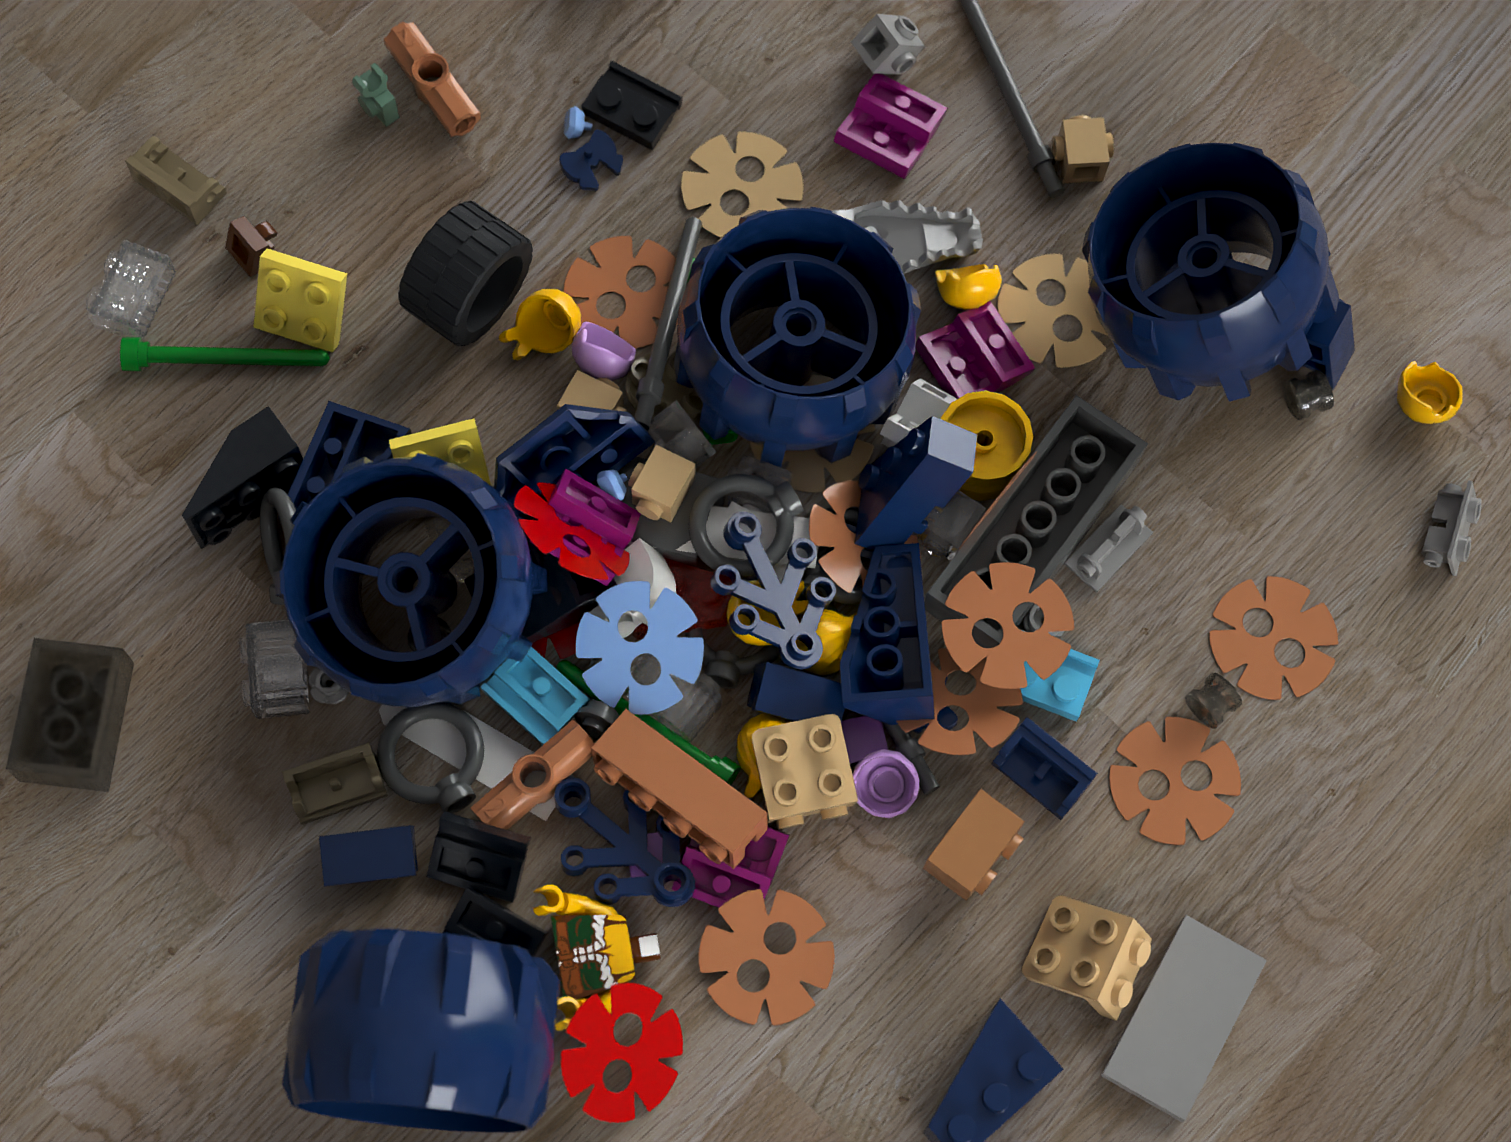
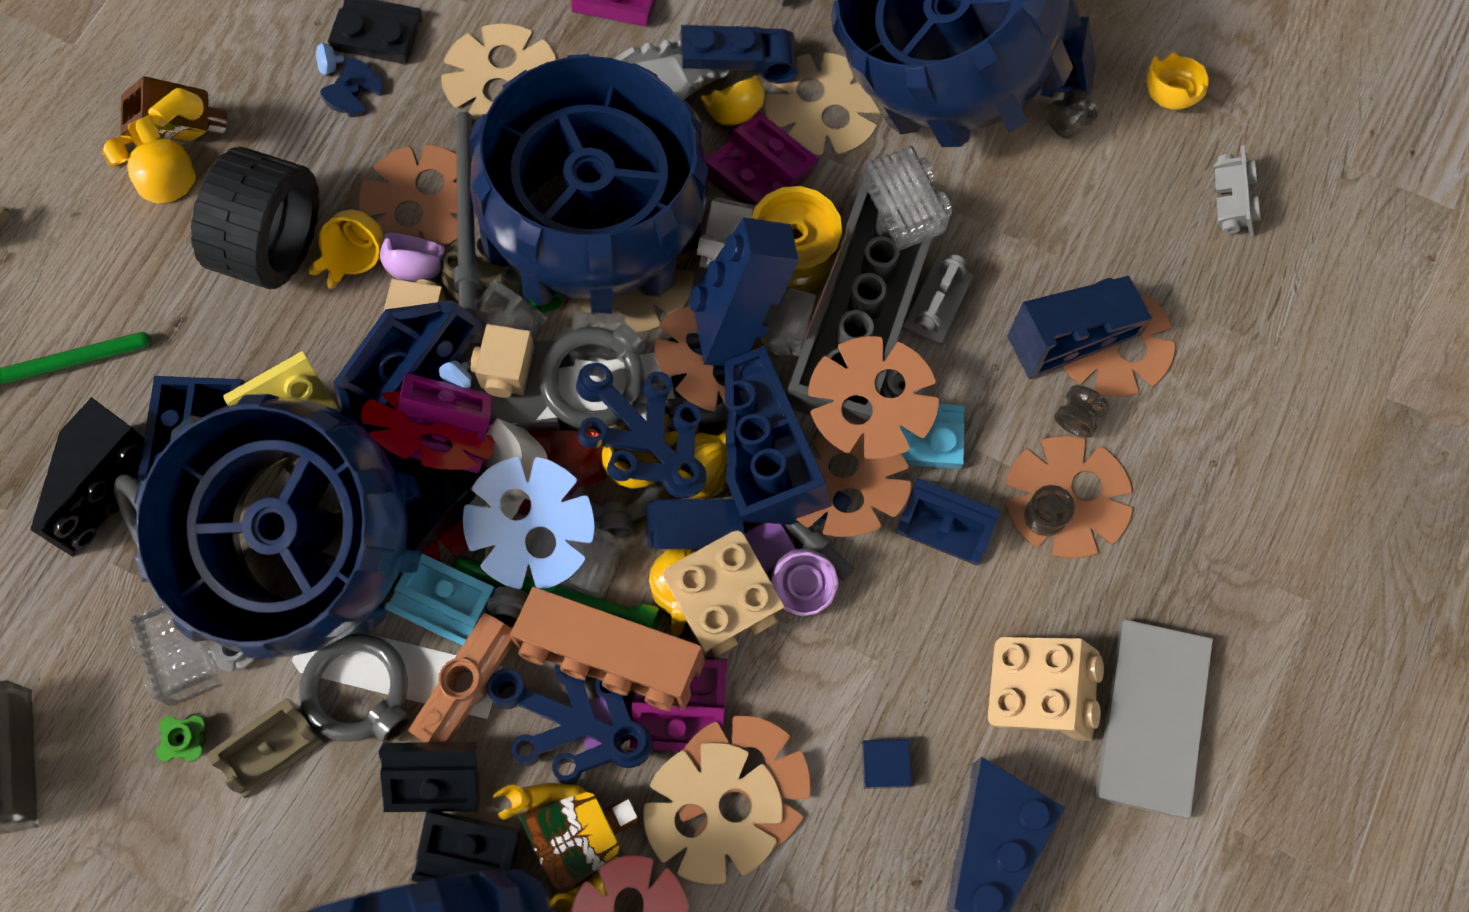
camera: 15 degrees left, 0 degrees up
(249, 242) = (42, 252): reddish brown tile -> none
(265, 762) = (190, 748): none -> bright green plate
(299, 300) = (102, 289): light yellow plate -> none
(368, 855) = (319, 810): dark blue hinge -> none
(375, 96) = (119, 72): sand green plate -> none
(383, 193) = (161, 170): none -> yellow hair
(399, 137) = (162, 110): none -> torso
(444, 95) = (178, 53): nougat piece -> none
(713, 939) = (741, 840): none -> tan piece
(910, 980) = (886, 764): none -> dark blue tile
(974, 846) = (907, 616): medium nougat brick -> none
(991, 234) = (740, 49): none -> dark blue plate
(1104, 438) = (907, 198): none -> clear brick
(1152, 779) = (1054, 502): none -> clear smoke wheel
(1238, 613) = (1077, 324): none -> dark blue wedge

